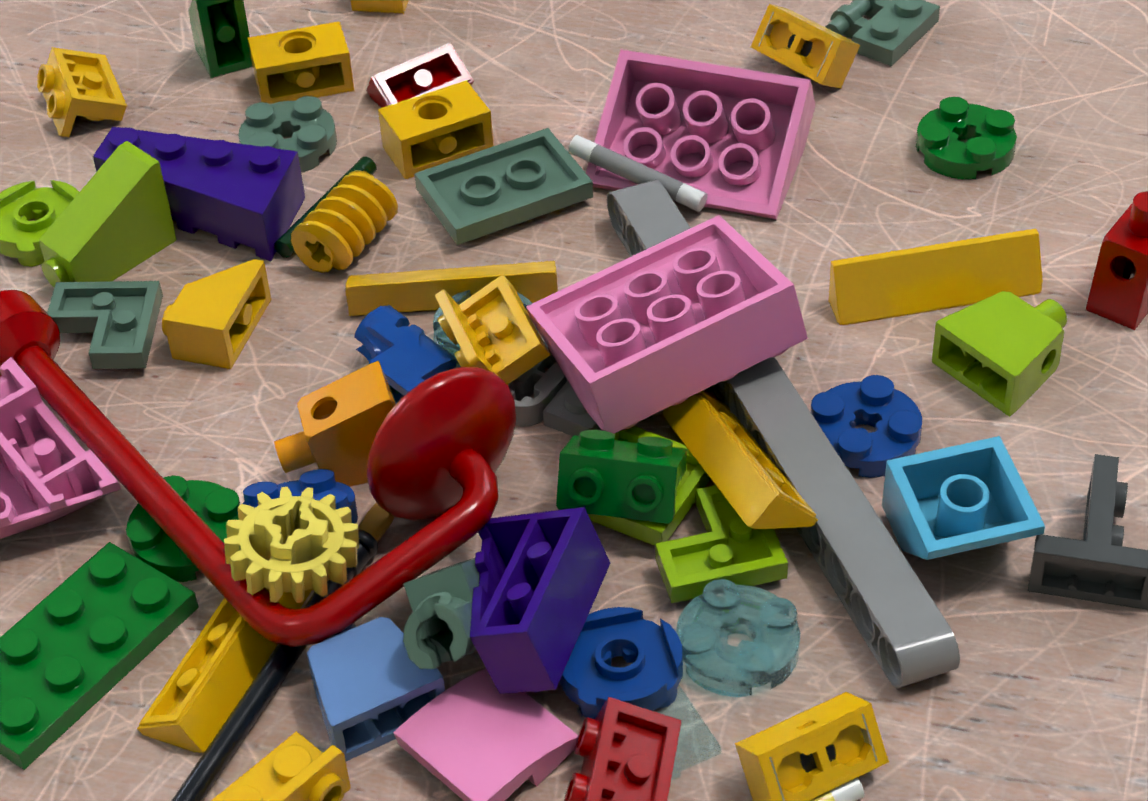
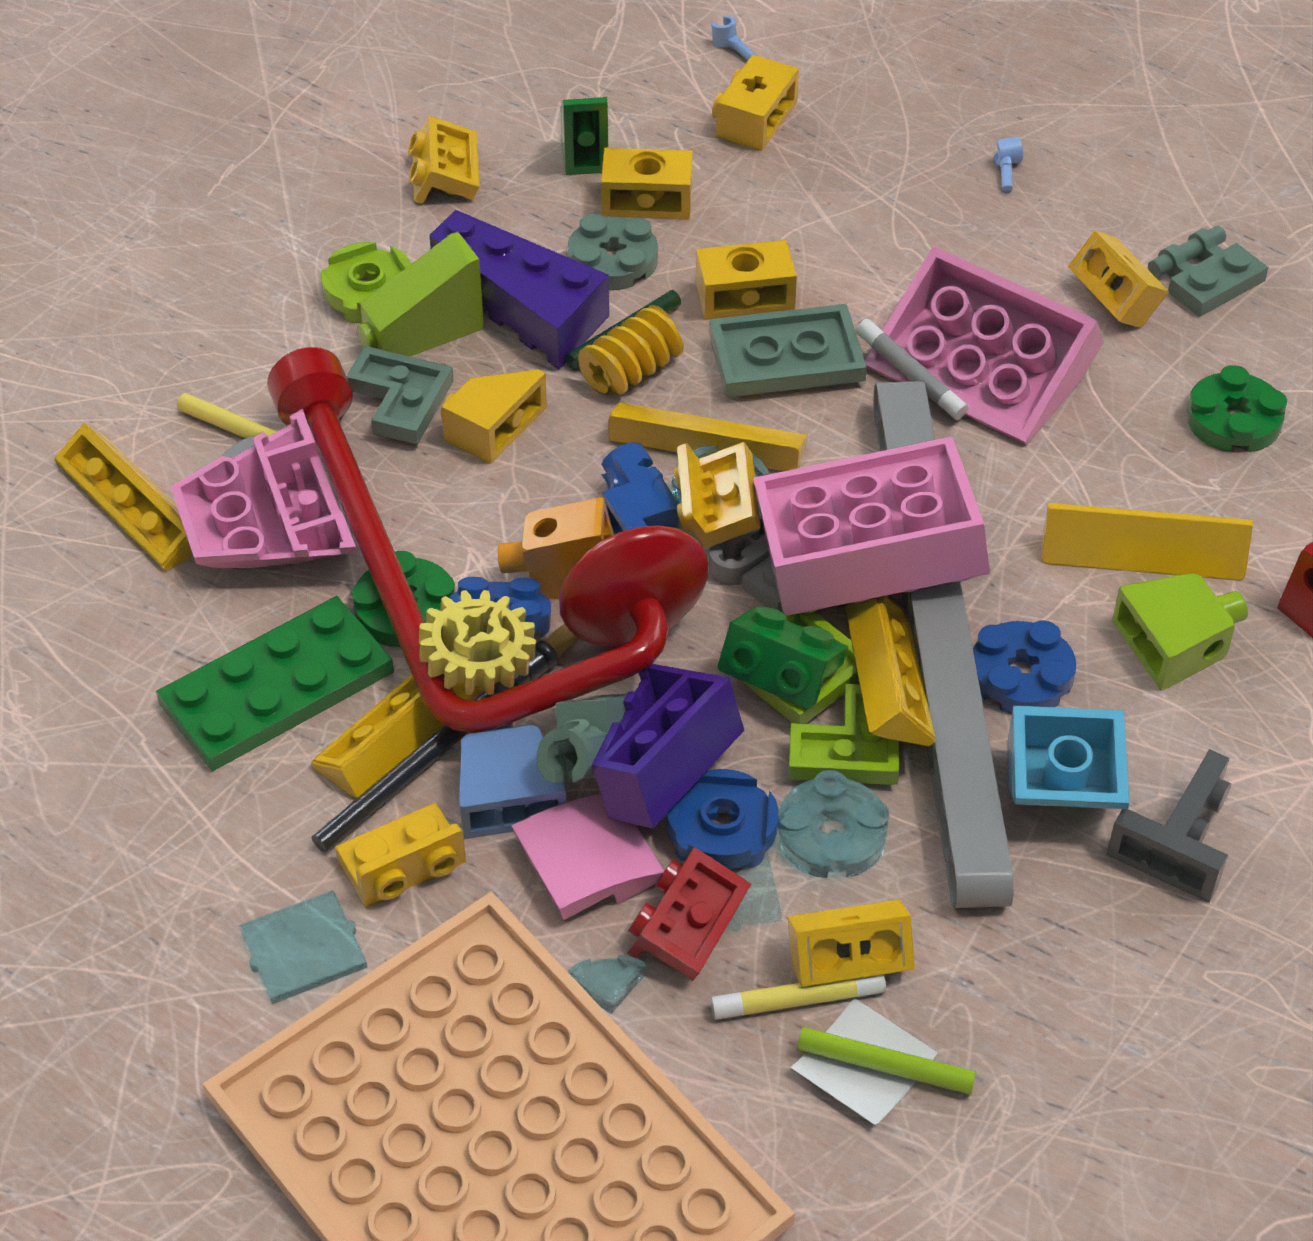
camera: 15 degrees right, 5 degrees up
(418, 76) = (751, 223): slope -> none

